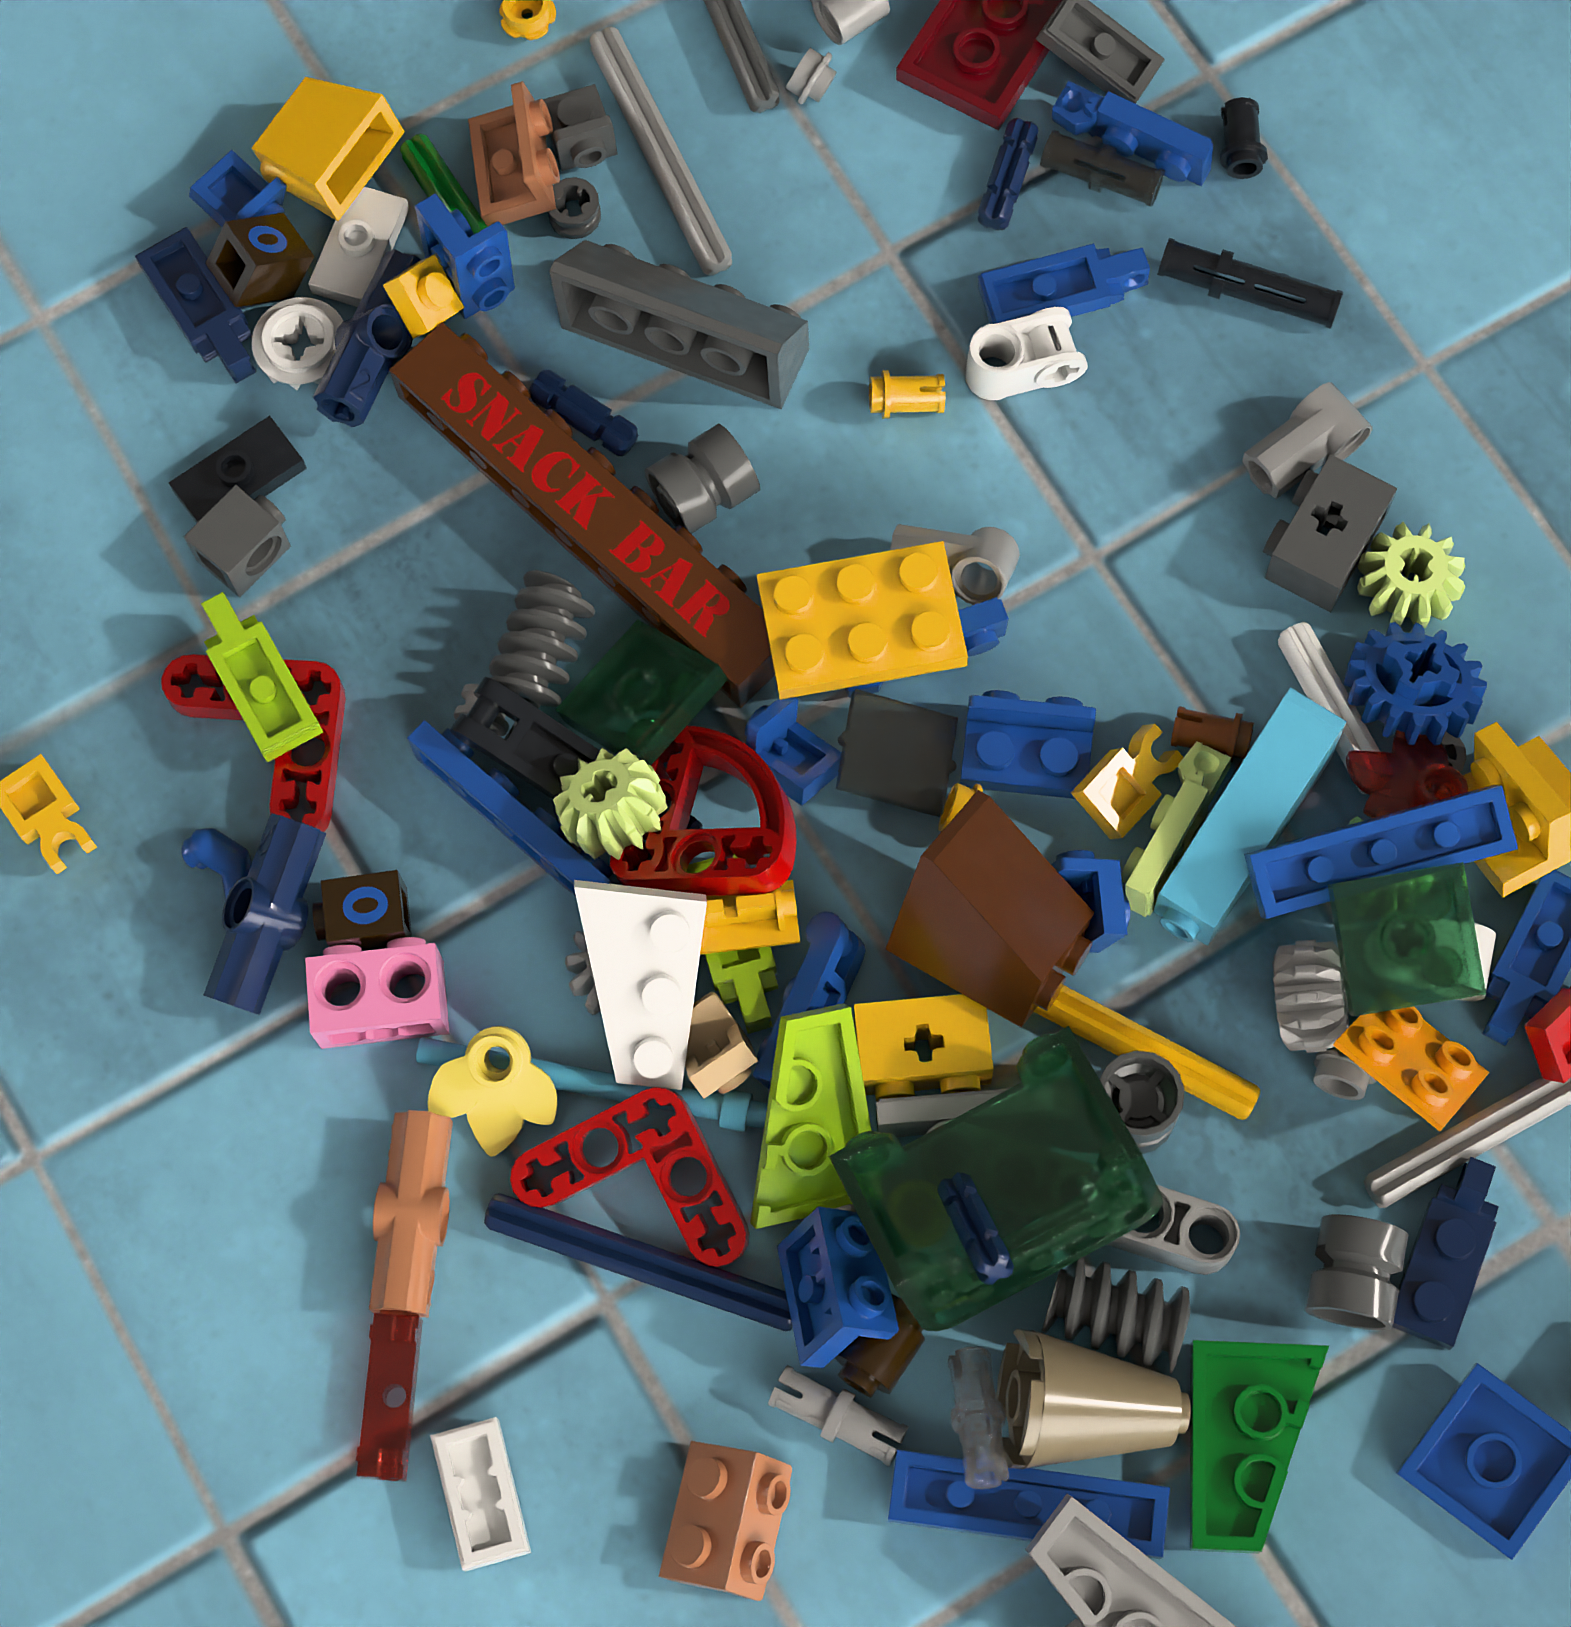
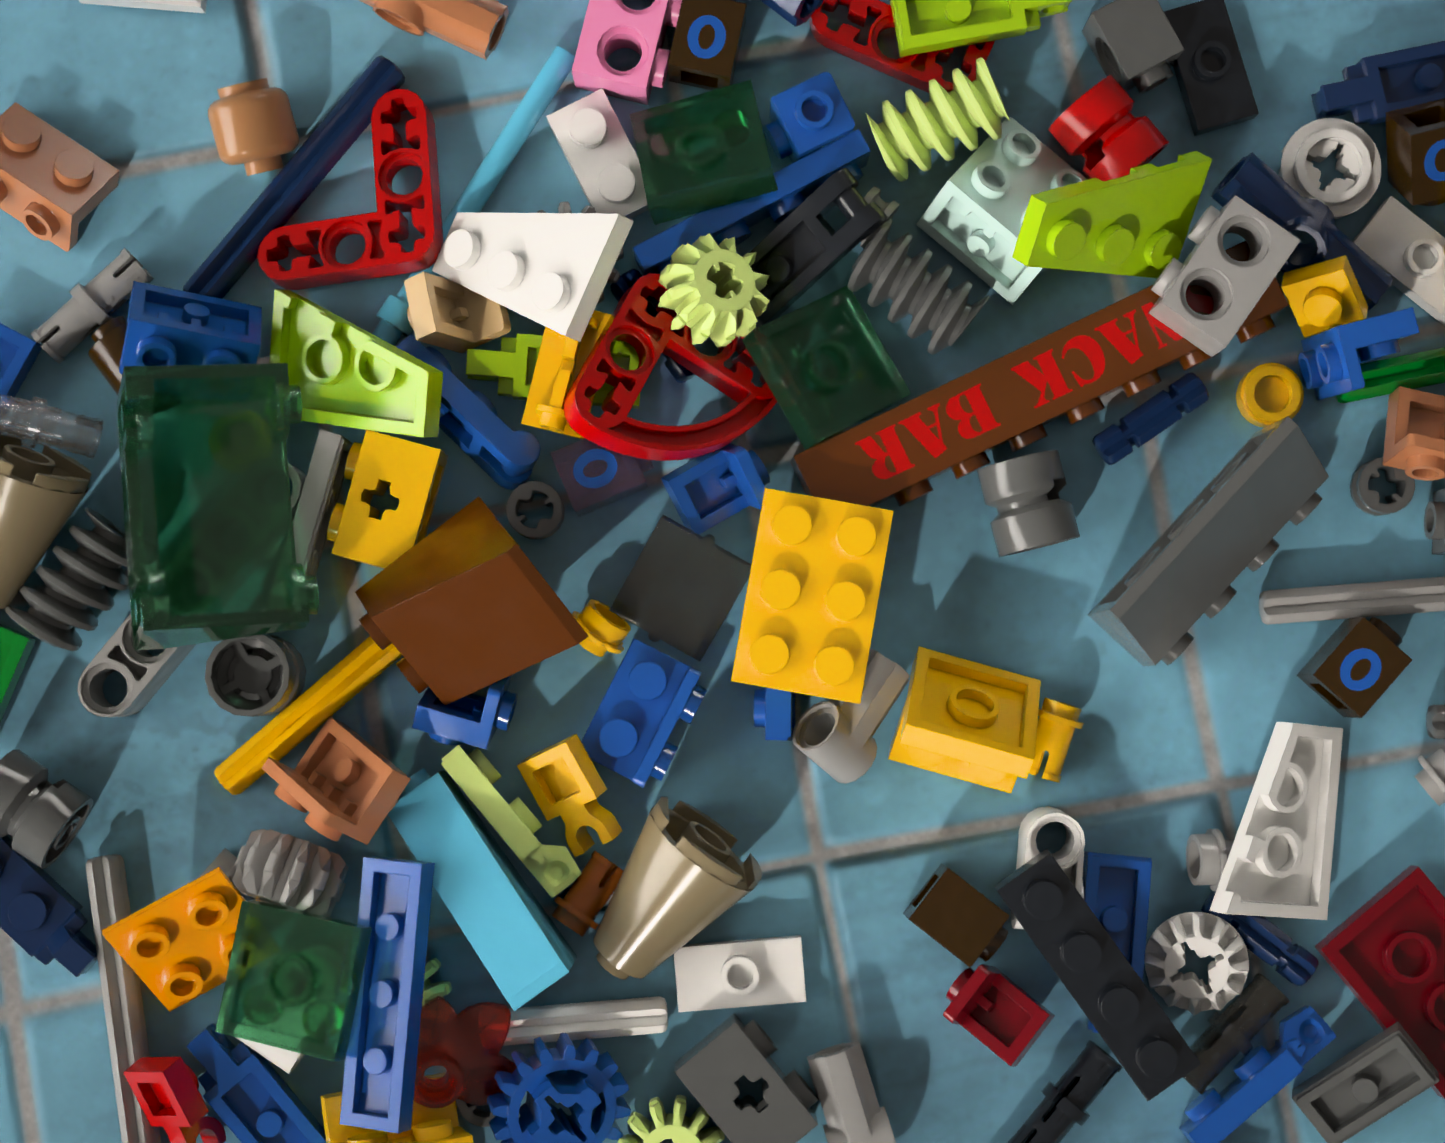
camera: 100 degrees right, 15 degrees up
(340, 522) = (1107, 132): none -> red wheel
(370, 673) = (939, 121): none -> yellowish green piece
(415, 790) = (807, 117): none -> blue bracket
(422, 482) = (1115, 224): none -> lime wing
(435, 590) = (986, 202): none -> light aqua bracket
(445, 360) = (1232, 283): none -> light grey brick
(477, 873) = (703, 152): none -> clear green plate
(492, 1096) = (491, 102): light yellow plate -> none
(513, 974) = (600, 155): none -> white plate
(525, 325) = (1269, 394): none -> yellow tile
(599, 1317) = (253, 126): none -> medium nougat head
(742, 173) = (1356, 665): none -> dark brown brick
(824, 864) = (598, 475): none -> clear purple brick
(889, 901) = (525, 493): none -> dark grey bush
(908, 176) = (1287, 830): none -> white wing
(919, 461) = (968, 721): none -> yellow bracket
(958, 232) = (1207, 857): none -> light grey plate
(975, 1228) = (169, 469): dark blue axle -> none
(1027, 207) = (1207, 936): none -> white gear
(1096, 414) = (958, 917): none -> dark brown brick
(1097, 277) = (1097, 974): none -> black plate
(1167, 352) = (996, 1012): none -> dark red bracket
(1179, 655) = (671, 889): none -> dark tan cone
(1203, 980) = (340, 784): none -> nougat bracket
(1227, 582) = (740, 973): none -> white plate

